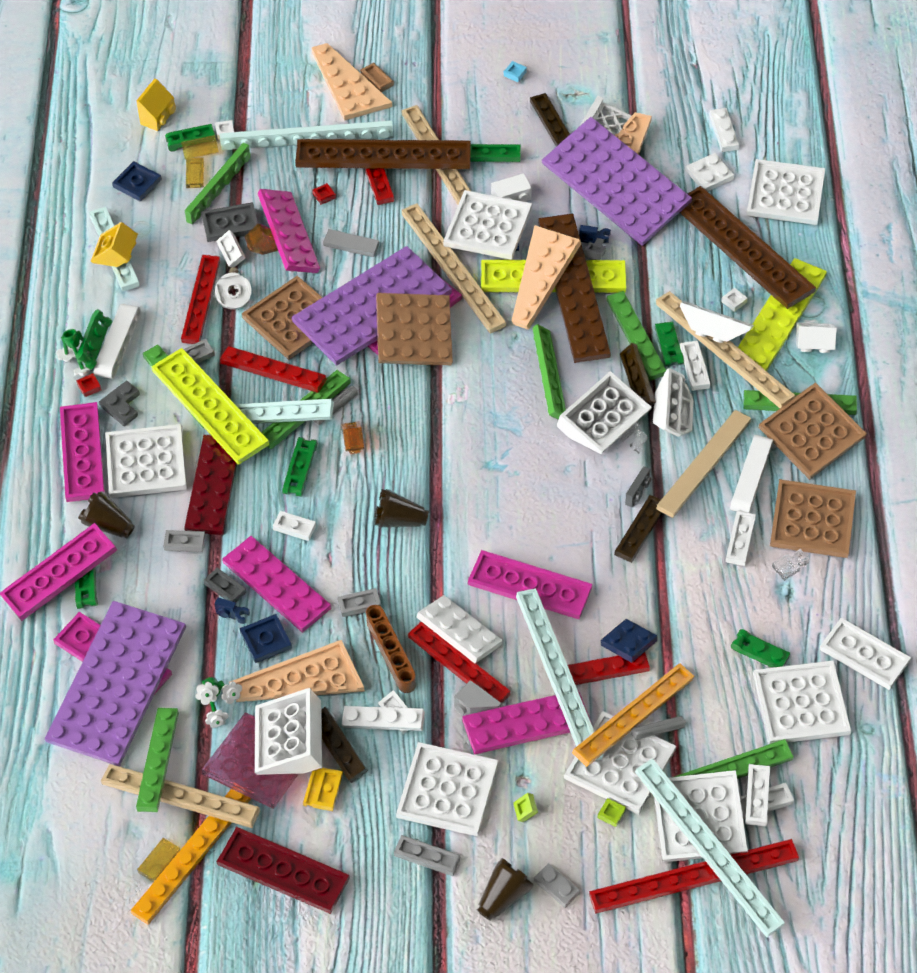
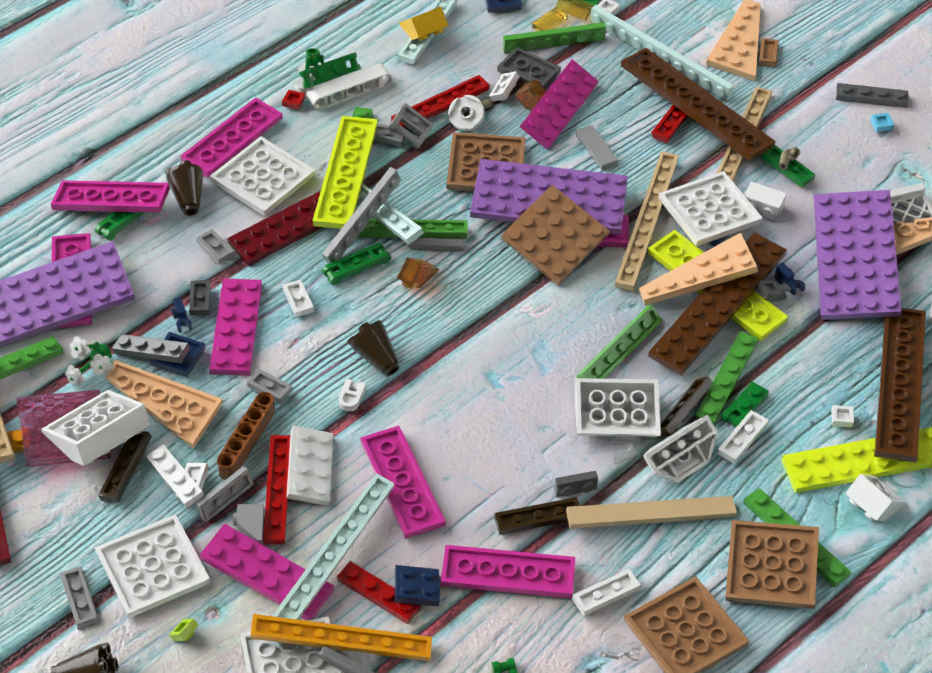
camera: 45 degrees right, 5 degrees down
(118, 401) = (297, 125): dark grey plate -> none
(207, 328) = (413, 121): none -> light grey plate
(245, 650) = (151, 348): none -> plate
(273, 369) = (425, 186): red plate -> none
(273, 435) = (362, 216): none -> light grey plate
(323, 788) = (76, 485): yellow plate -> none
(324, 194) = (622, 101): red tile -> none
(424, 562) = (349, 399): none -> white plate
(431, 699) = (224, 494): none -> light grey tile
(482, 56) = (872, 95): none -> dark grey plate
(490, 146) = (788, 156): none -> dark tan arm
(549, 118) = (869, 171): dark brown tile -> none
(668, 580) = (508, 571): none -> dark pink plate
(712, 323) = (787, 411): white wedge -> none
(731, 355) = (780, 445): tan plate -> none
(751, 474) = (679, 554): white beam -> none

